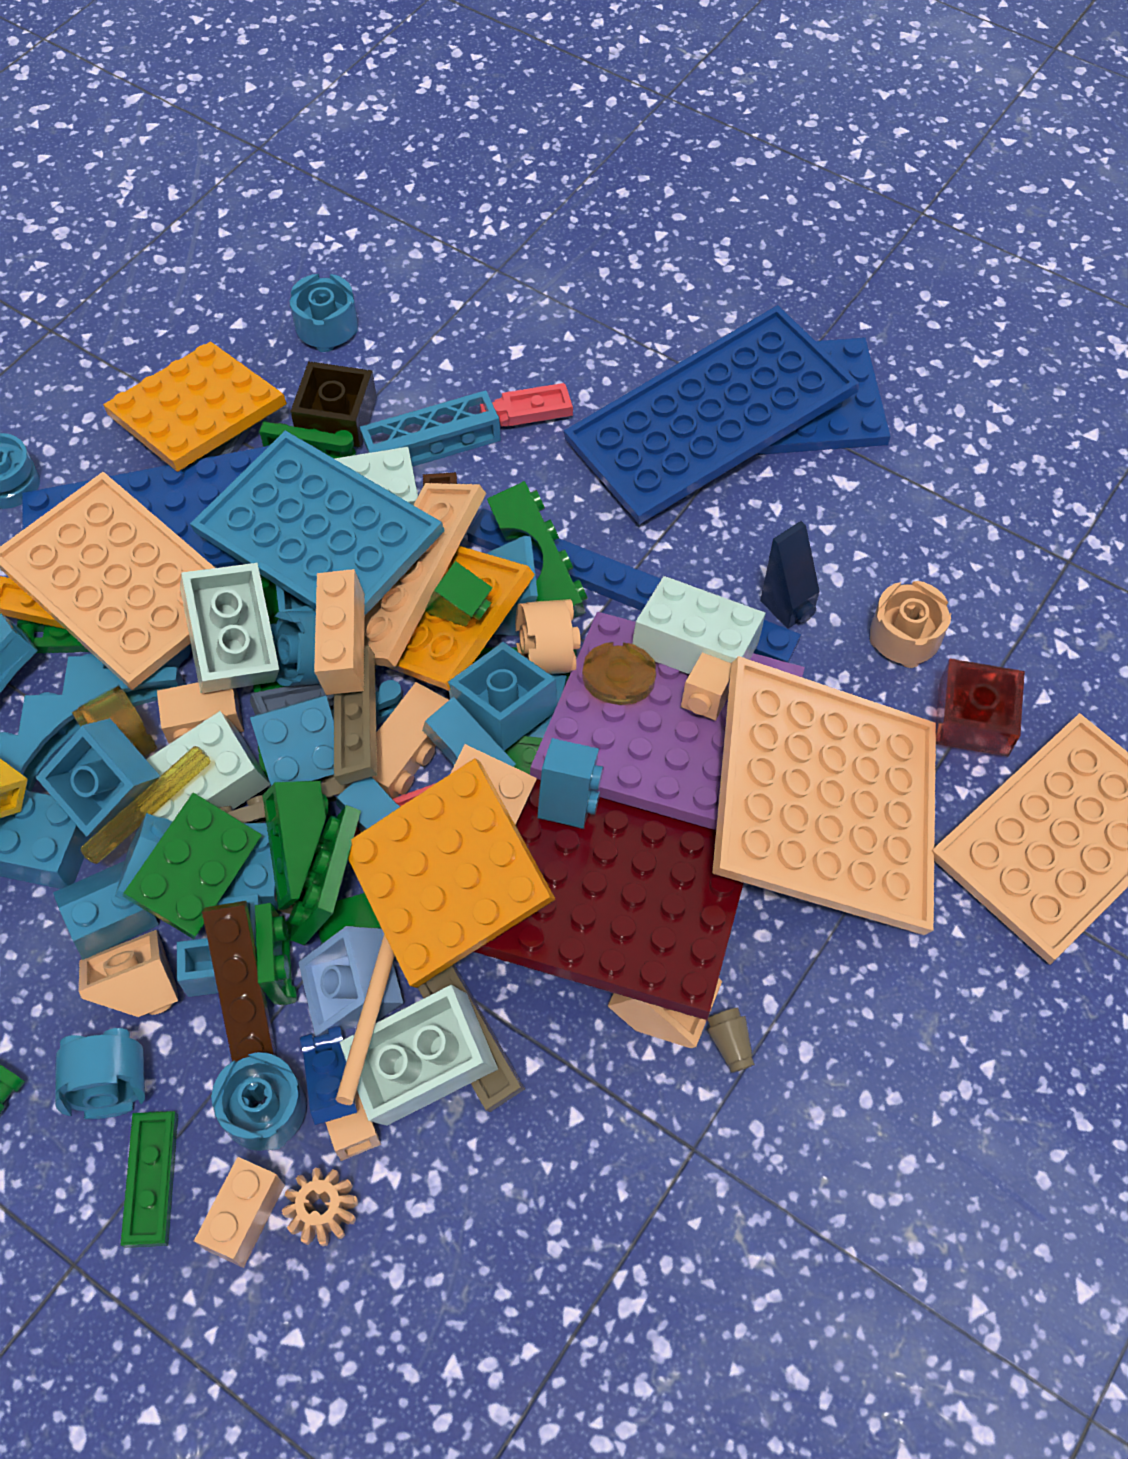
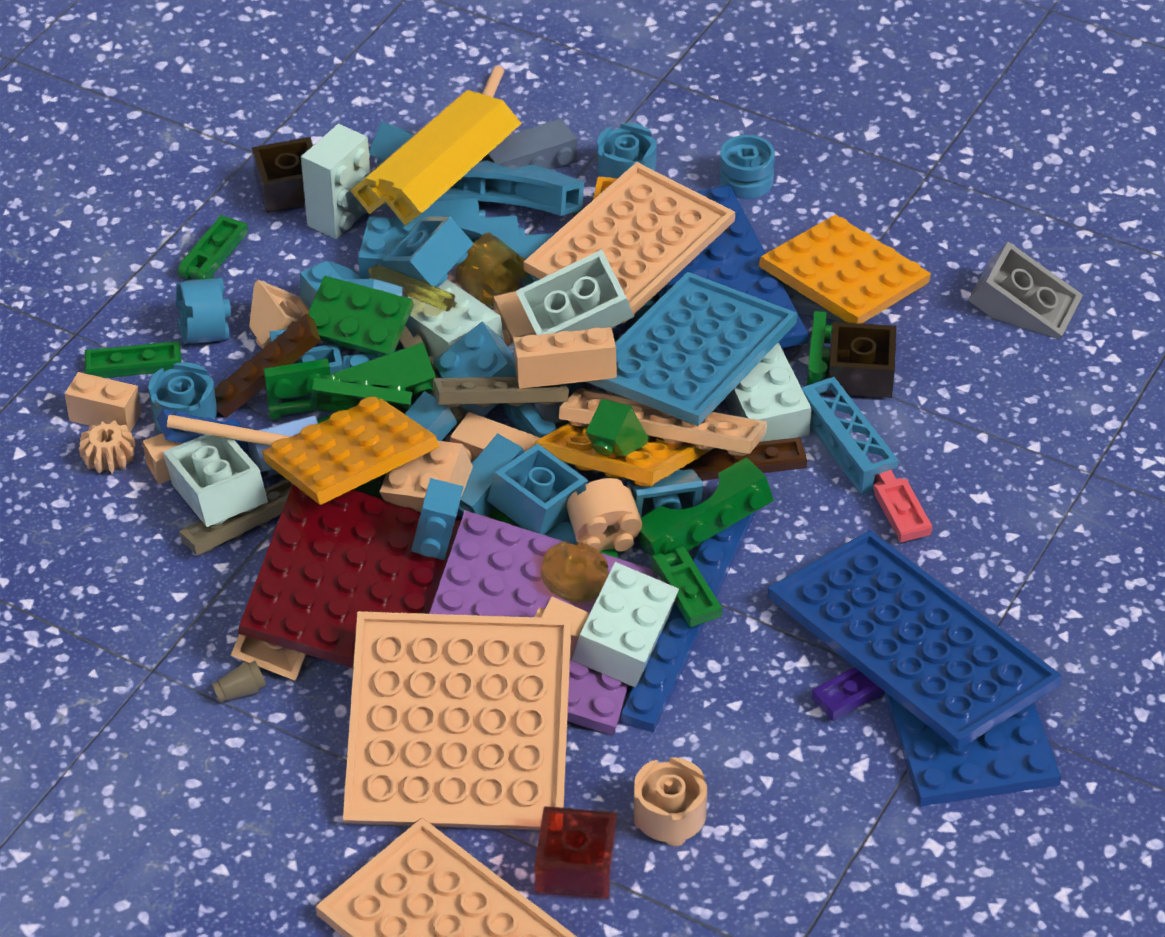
camera: 85 degrees right, 15 degrees down
(258, 275) = (1025, 293): none -> light grey slope
(323, 311) = (979, 339): dark azure brick -> none
(633, 580) = (694, 595): none -> green plate
(766, 478) = (845, 693): none -> dark purple plate
(791, 578) = (699, 691): dark blue slope -> none

